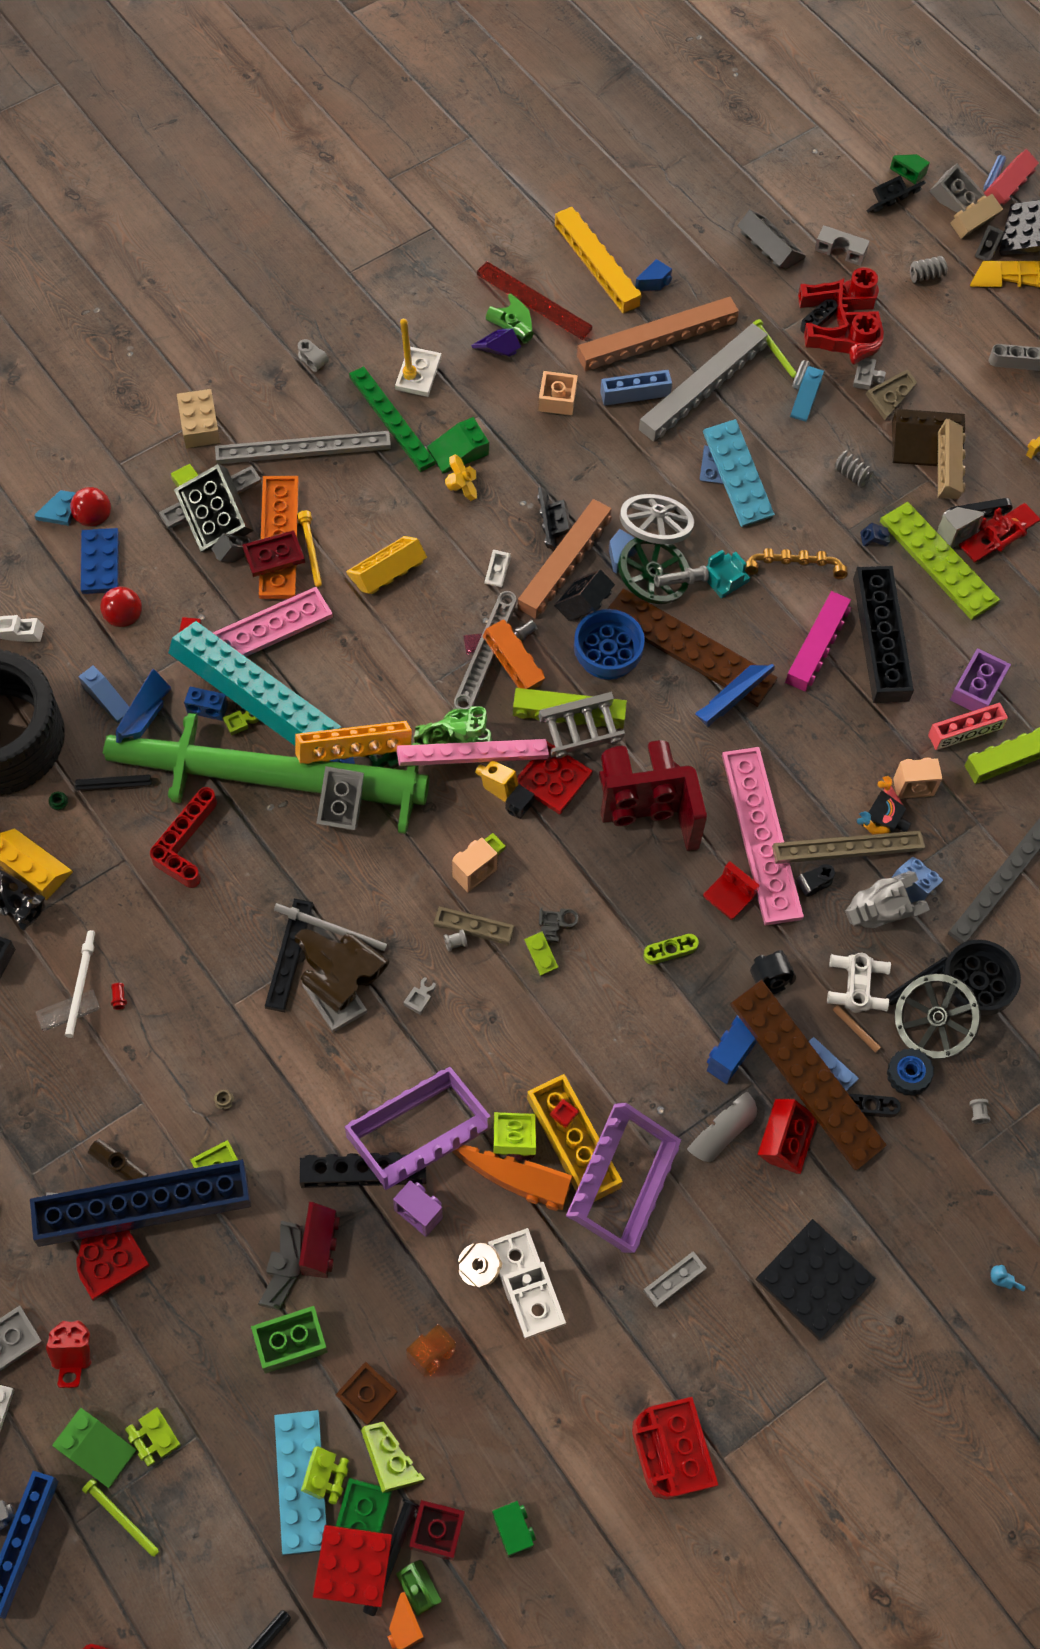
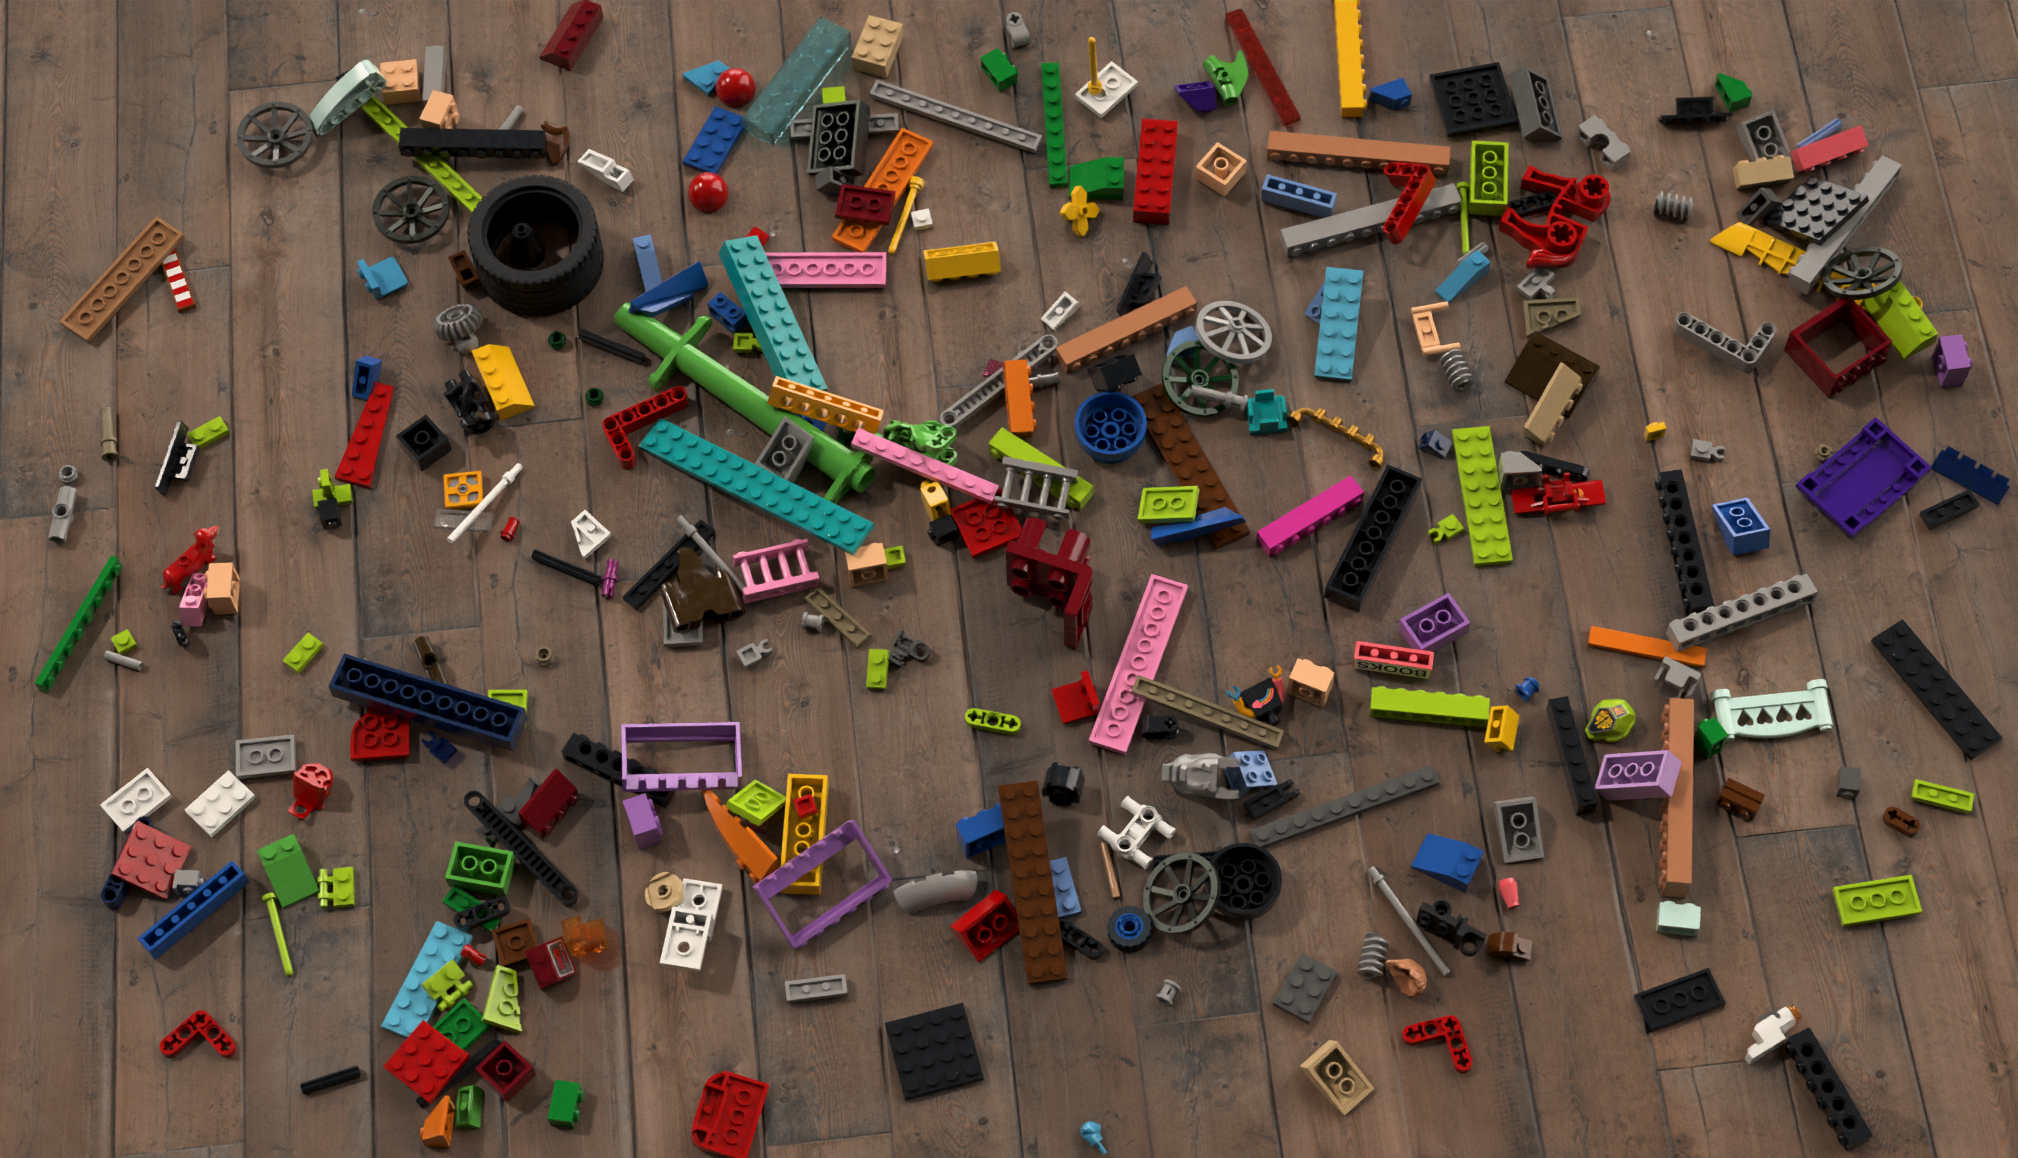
camera: 35 degrees right, 0 degrees up
(50, 982) = (463, 490): none -> light orange piece
(125, 830) = (594, 392): none -> dark green plate
(143, 477) = (796, 81): none -> clear light blue brick
(176, 1242) = (440, 749): none -> clear blue plate
(193, 1005) = (566, 567): none -> black axle
(197, 963) = (589, 533): none -> white wing
(243, 995) = (610, 578): none -> magenta pin
(303, 1383) = (460, 900): none -> green plate
(310, 1295) = (523, 850): none -> black gear
(316, 393) = (998, 69): none -> green brick
(328, 546) = (921, 219): none -> white plate
(331, 843) = (757, 486): none -> teal plate
(331, 1430) = (472, 955): none -> red pin
(333, 1374) = (483, 906): none -> black beam
(399, 928) = (780, 587): none -> bright pink fence
(413, 1395) = (550, 962): none -> dark red slope
(504, 418) = (1155, 171): none -> red brick
(699, 686) = (1168, 504): none -> lime plate
(719, 255) = (1473, 99): none -> black plate
(729, 332) = (1418, 184): none -> red beam
(775, 308) = (1488, 178): none -> lime brick
(807, 449) = (1427, 331): none -> light nougat plate
(930, 599) = (1447, 527): none -> lime plate
(947, 896) = (1270, 799): none -> black hinge

